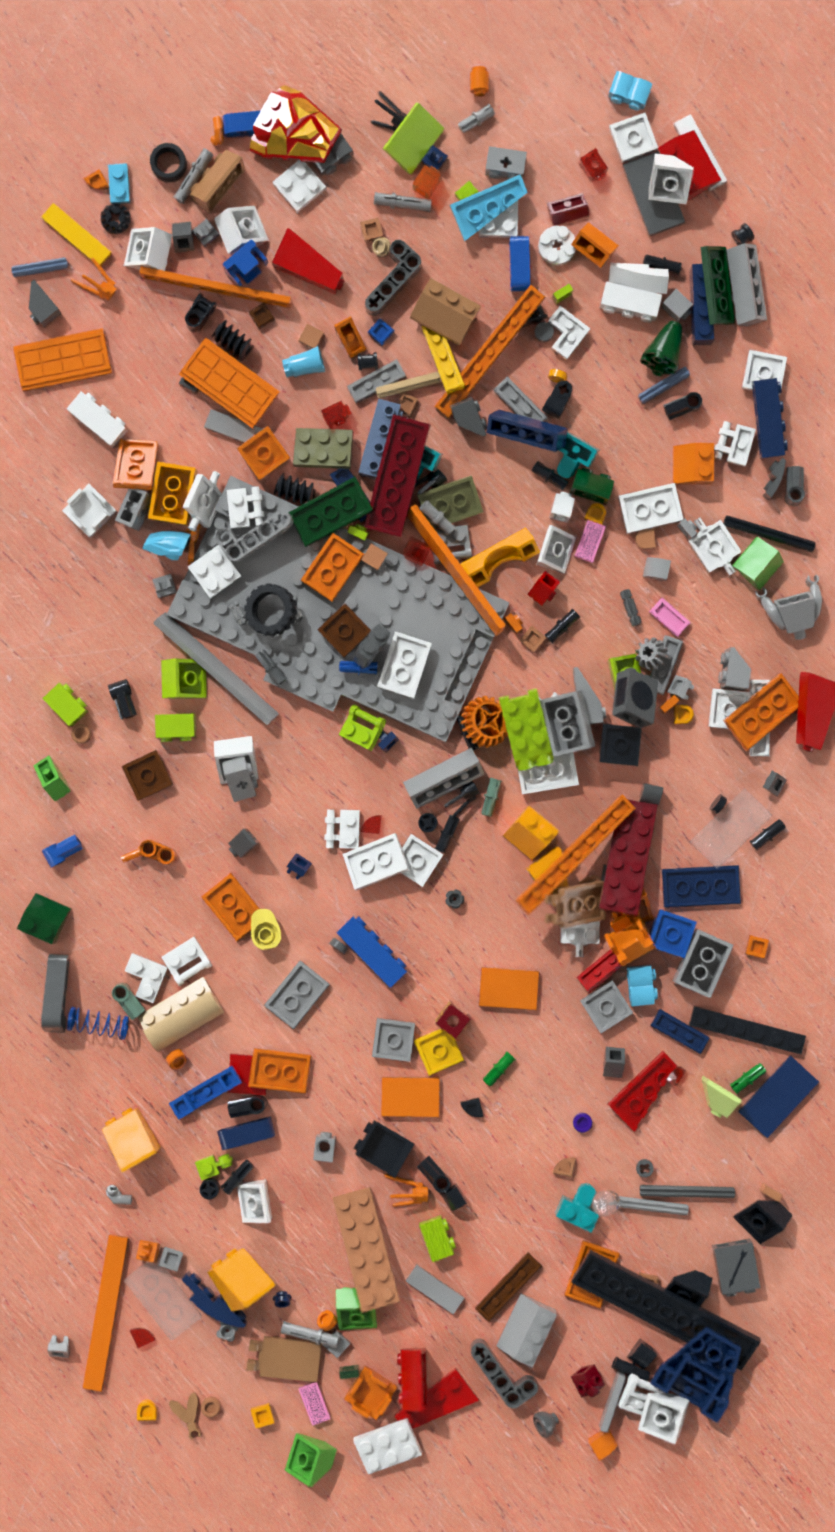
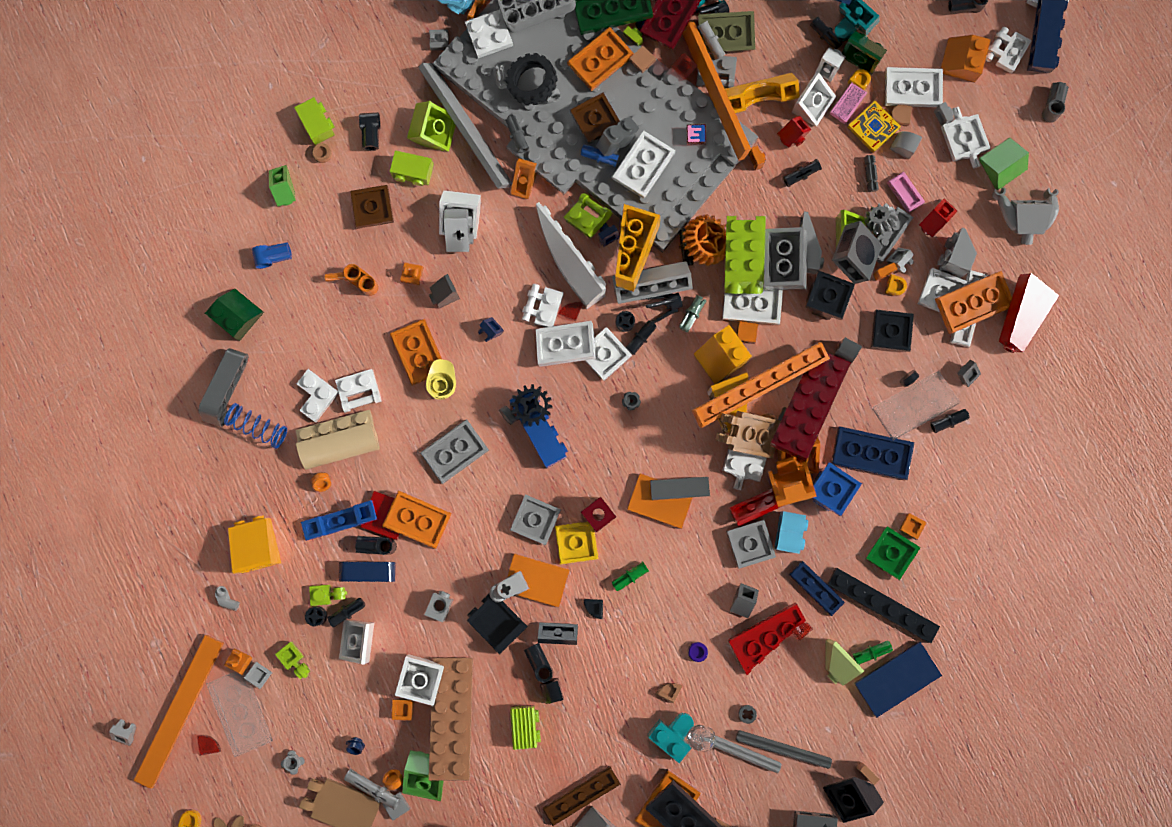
camera: 15 degrees right, 5 degrees down
(129, 1002) = (290, 414): sand green piece -> none
(196, 1233) = (290, 657): none -> lime plate
(205, 831) = (411, 273): none -> orange tile
(212, 1306) = (288, 737): dark blue slope -> none
(239, 1279) = (318, 713): light orange slope -> none
(289, 707) = (523, 178): none -> orange slope
(317, 1253) = (402, 709): none -> orange plate
(326, 1221) = (419, 680): none -> white slope
(351, 932) = (523, 402): none -> black gear
(357, 778) = (569, 260): none -> white wedge
(388, 1110) = (510, 587): none -> light grey piece
(417, 749) = (635, 242): none -> light orange wedge
(418, 1195) = (518, 678): orange plant -> none
(435, 1289) = (508, 778): light grey tile -> none
(444, 1142) = (557, 633): none -> plate
(447, 619) = (696, 134): none -> tile
(524, 972) = (680, 488): none -> dark grey tile
(532, 639) = (770, 178): nougat tile -> none
(549, 800) = (747, 332): none -> orange tile
(621, 558) = (874, 127): none -> yellow tile
(690, 760) = (892, 330): none -> black plate
(703, 963) = (857, 526): light grey brick -> none
(707, 636) = (937, 218): none -> red slope
(744, 978) = (893, 553): none -> green plate
(769, 533) = (1029, 145): black axle -> none
(776, 474) = (1038, 89): dark grey slope -> none

